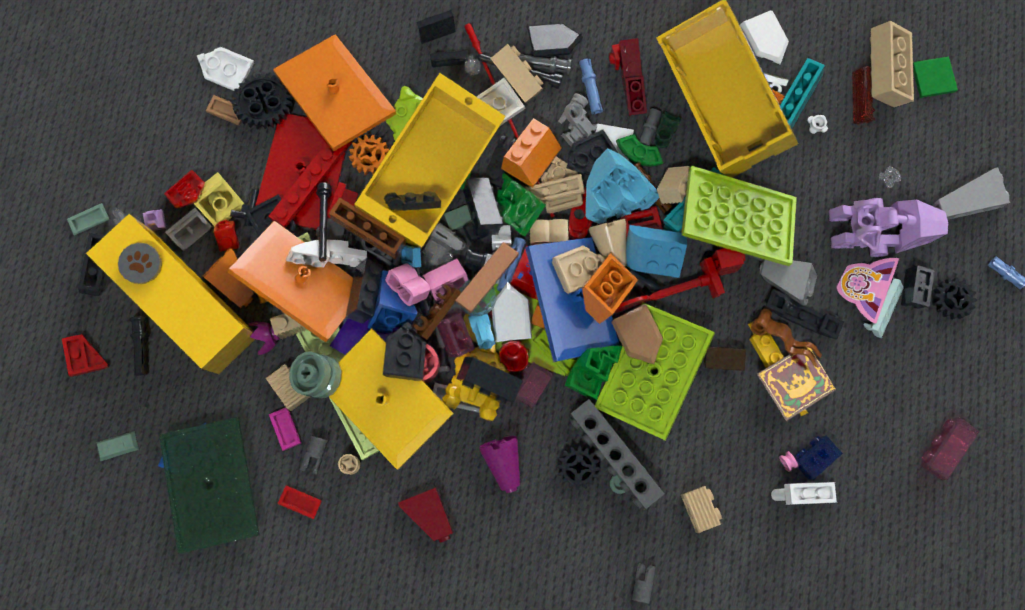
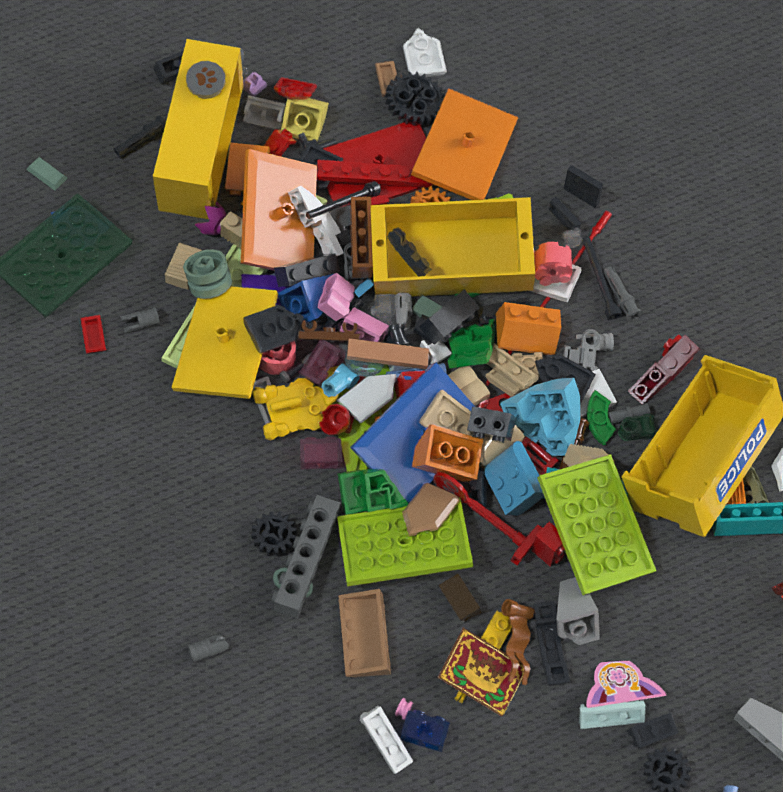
camera: 50 degrees right, 15 degrees down
(81, 356) = (102, 102): red wing -> none
(88, 219) = (218, 36): sand green tile -> none
(285, 429) = (147, 286): dark pink tile -> none
(349, 464) = (151, 346): tan wheel -> none
(429, 514) = (151, 437): dark red slope -> none
(488, 380) = (298, 408): black brick -> none
(494, 92) = (553, 263): none -> coral brick
(503, 461) = (236, 468): magenta cone -> none
(517, 73) = (592, 274): tan brick -> none
(552, 39) = (648, 287): tile -> none
(588, 79) = (635, 337): medium blue pin -> none
(606, 238) = (491, 424): none -> black brick
(701, 510) = (307, 657): tan brick -> none
(707, 451) = (364, 634): none -> medium nougat slope
(821, 119) = (749, 551): white plate -> none
(869, 217) = (709, 695): lavender piece -> none
(895, 177) = (743, 643): clear plate -> none

